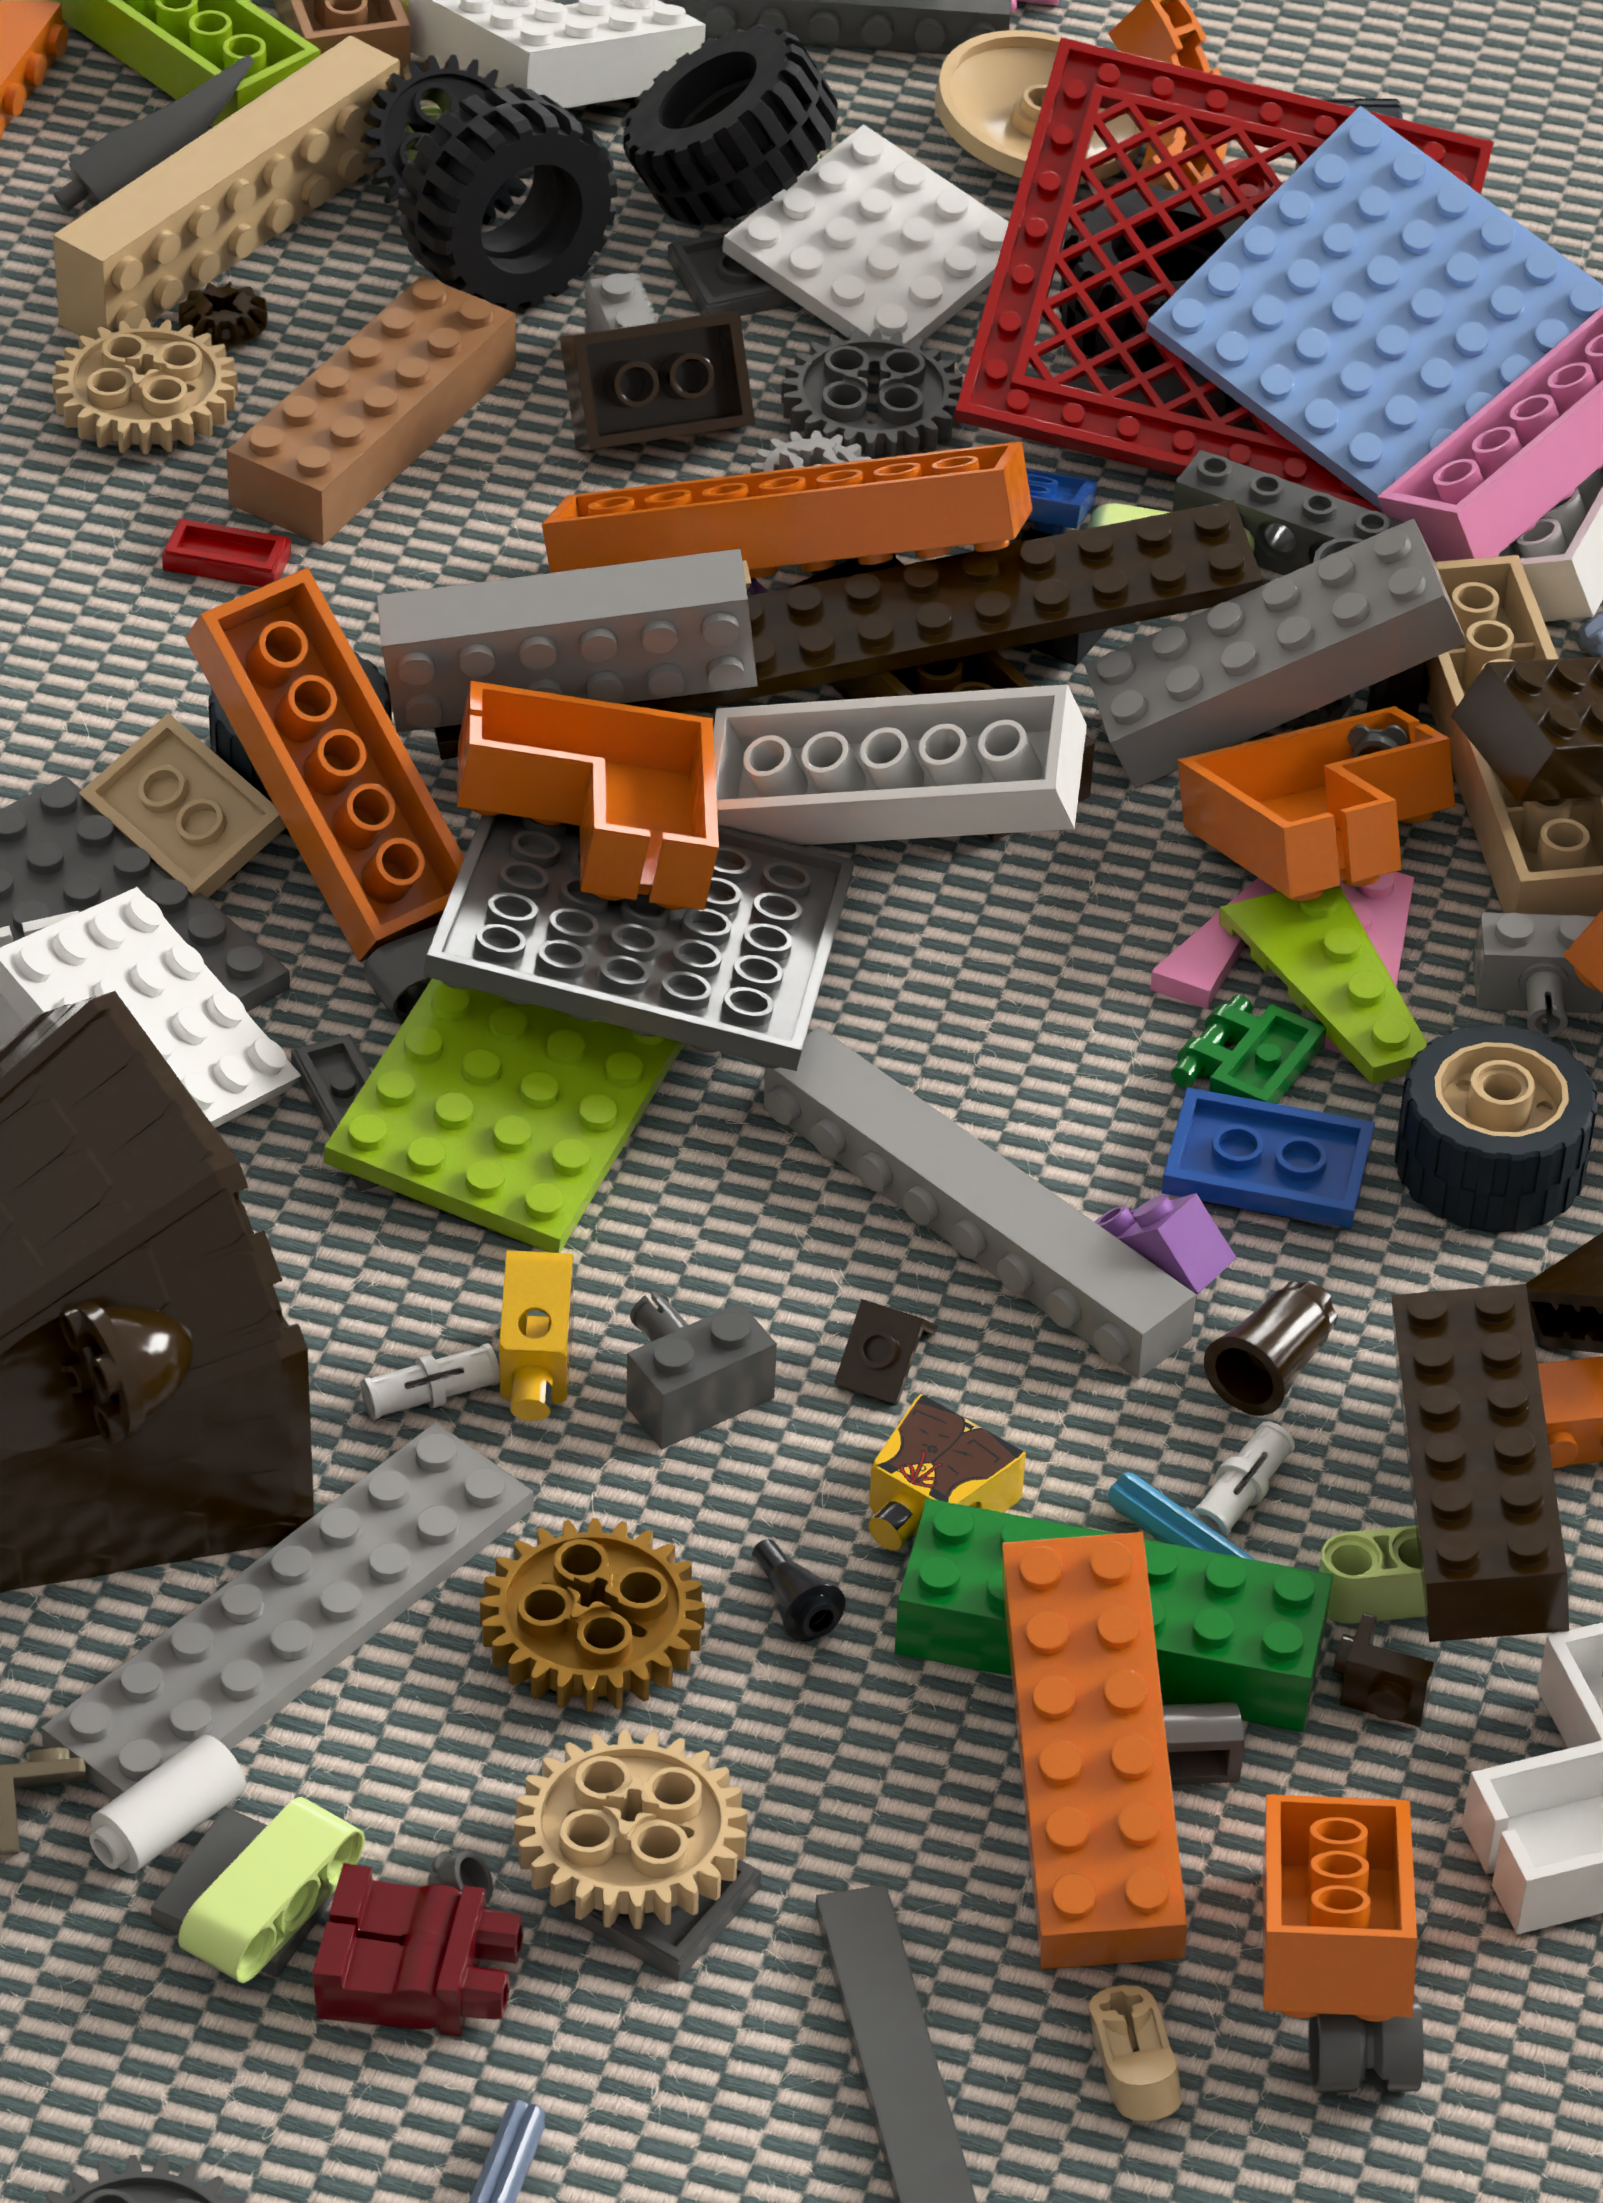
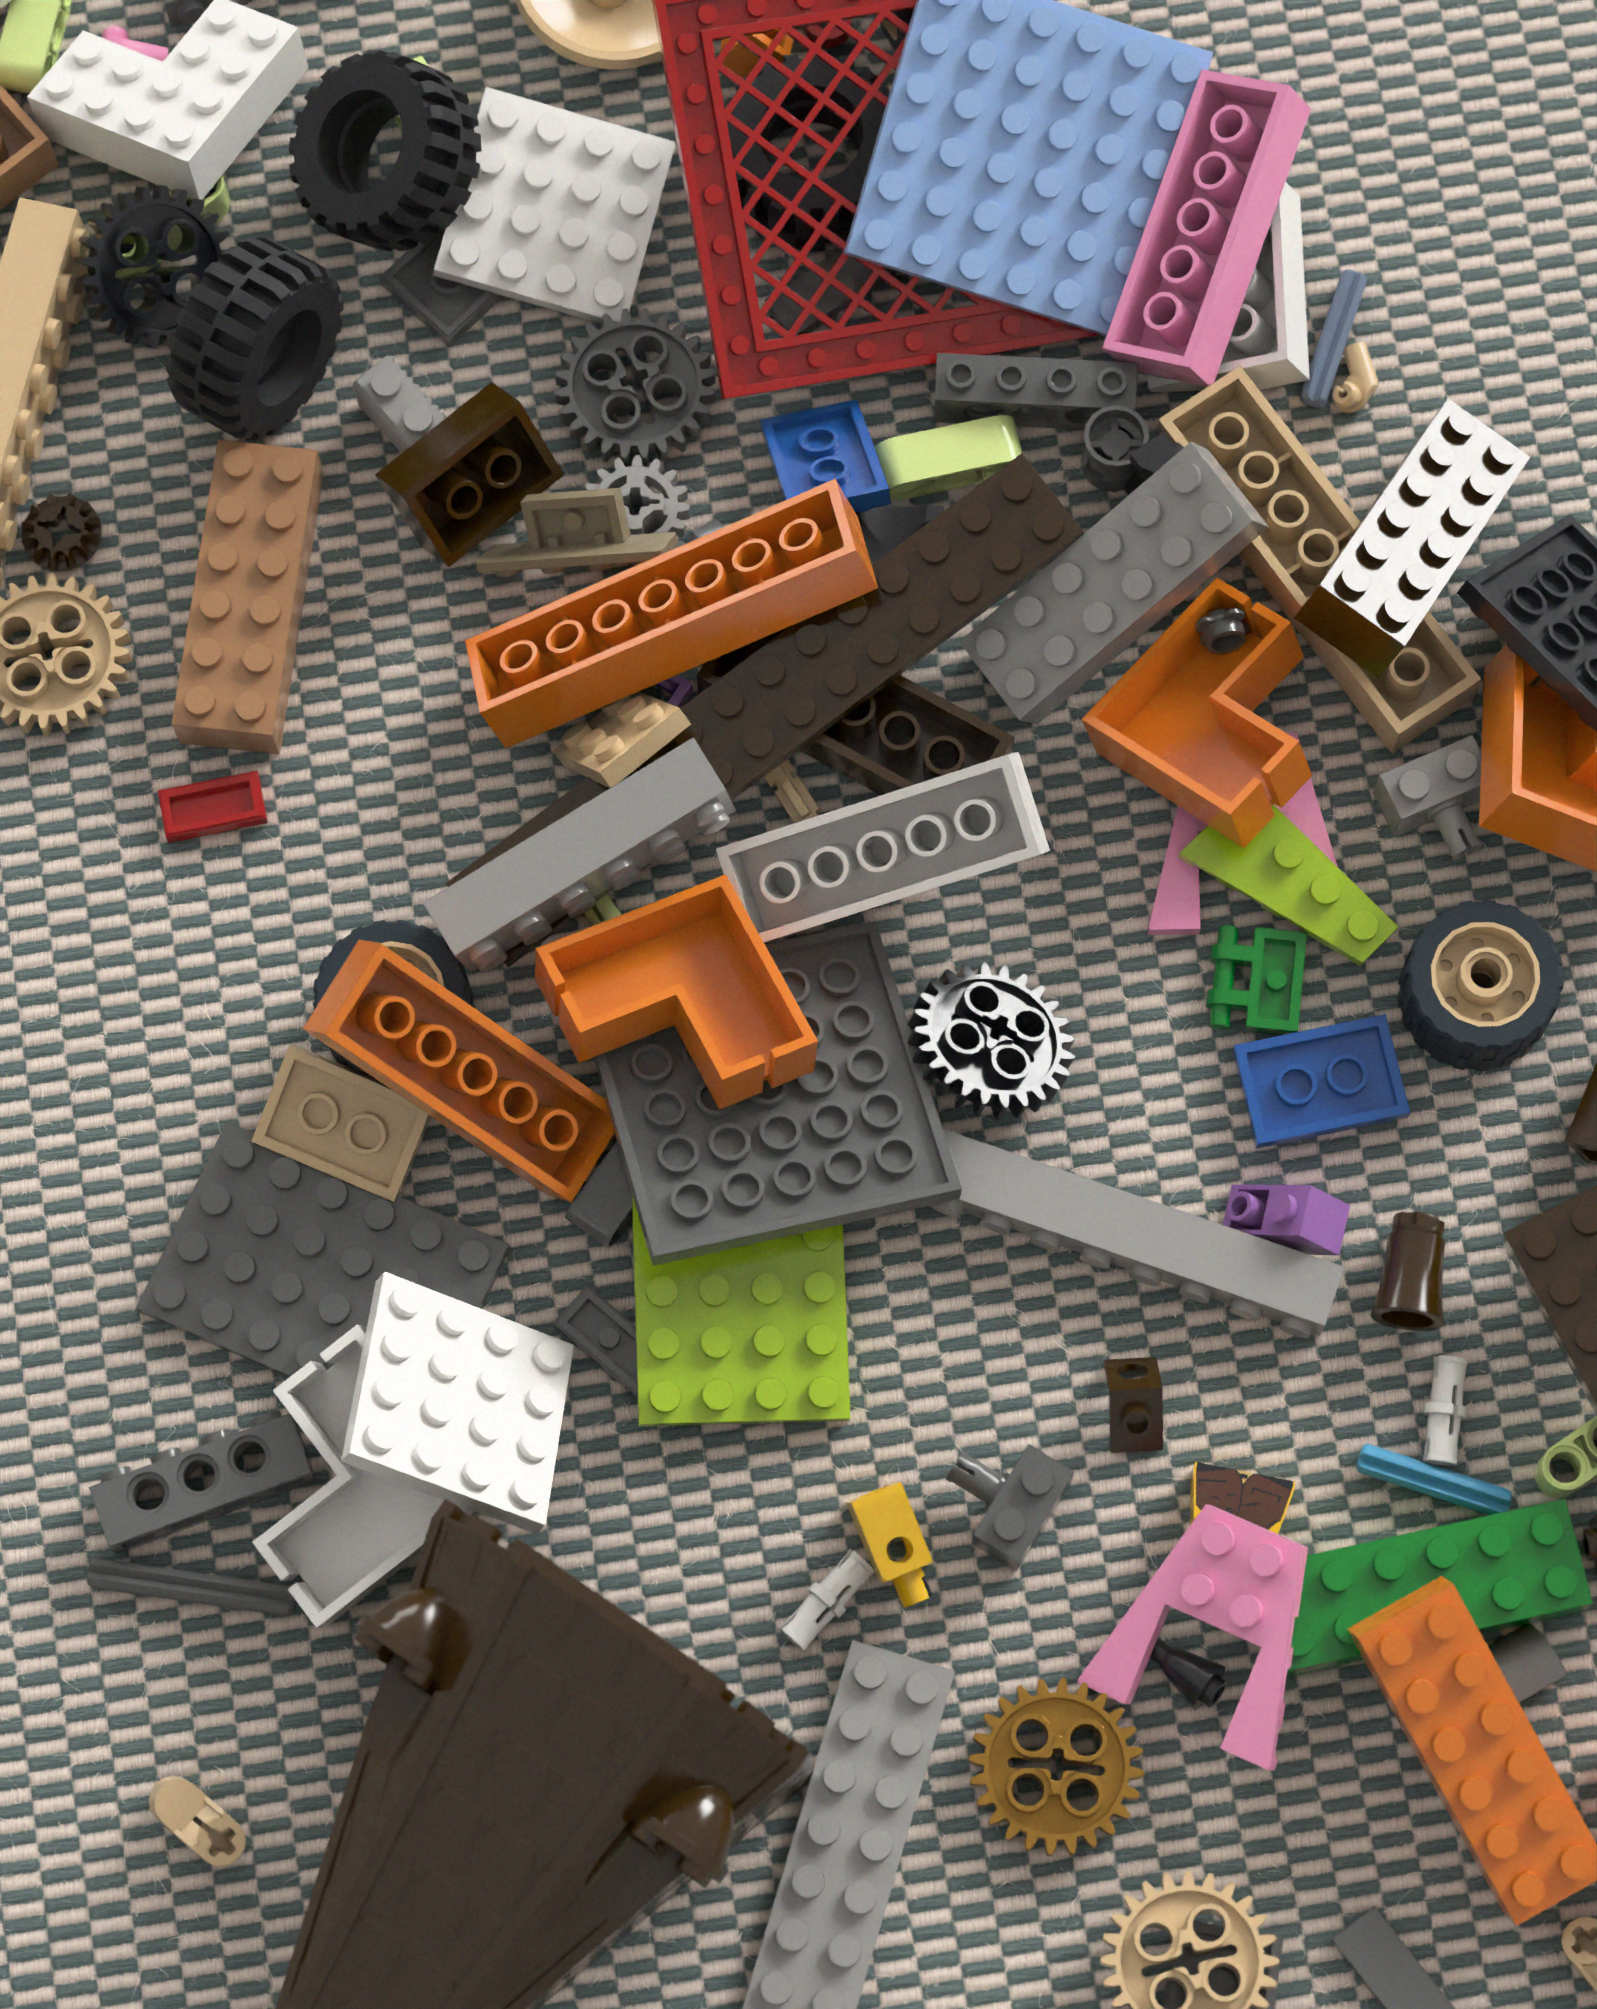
camera: 20 degrees left, 30 degrees up
(723, 446) = (574, 531): none -> dark tan bracket
(890, 1492) = (1233, 1580): none -> bright pink wing
(917, 981) = (991, 1040): none -> black gear

